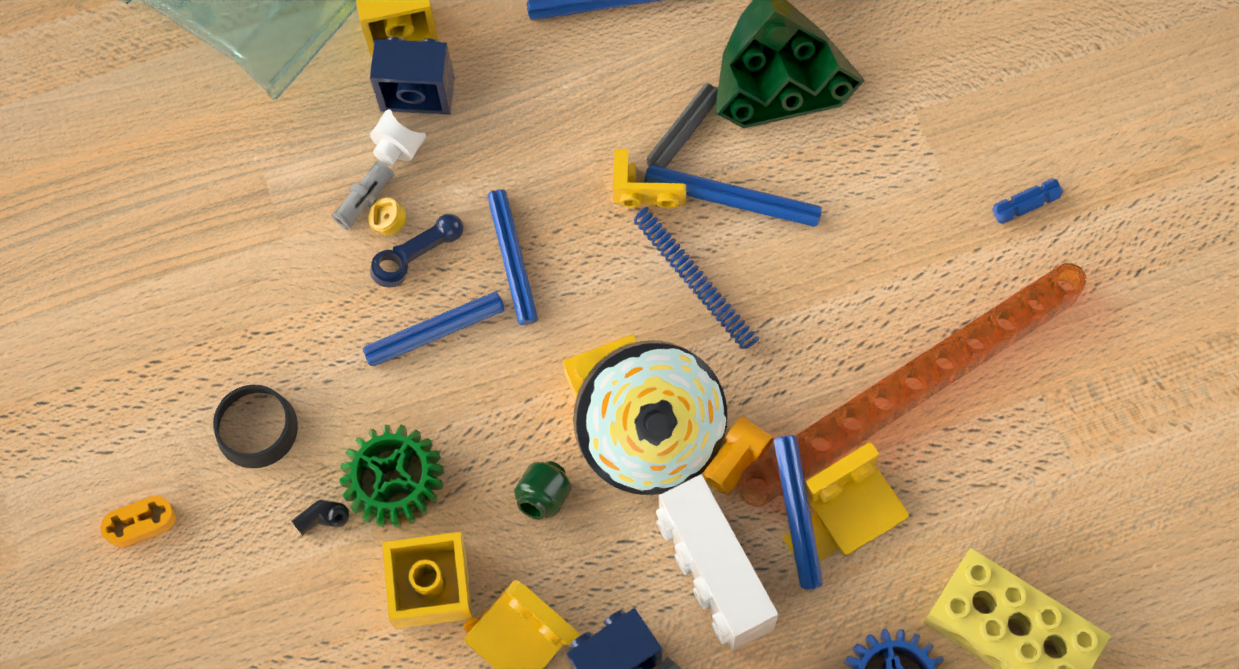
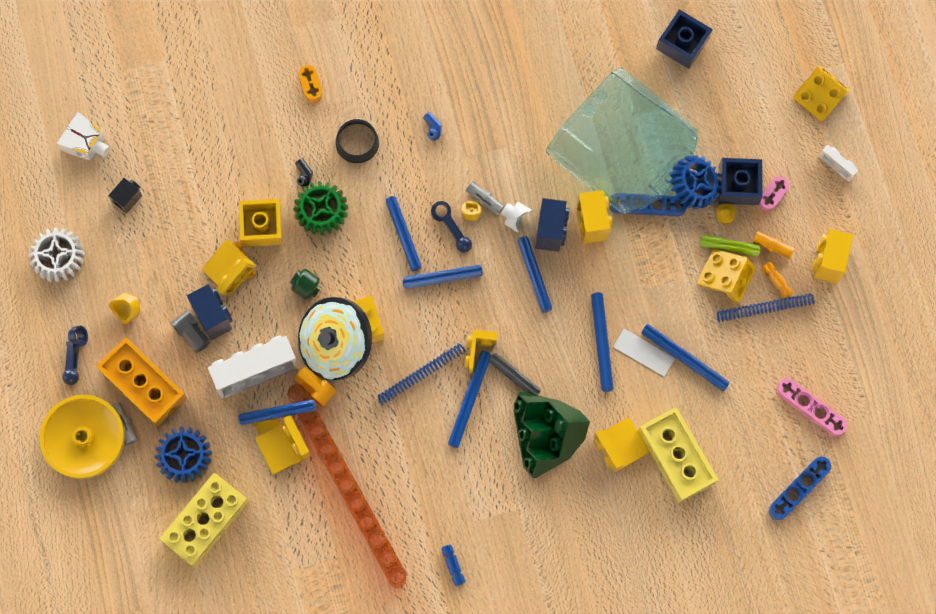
camera: 85 degrees right, 5 degrees up
(225, 291) = (435, 126): none -> blue arm
(499, 108) = (534, 274): none -> blue axle

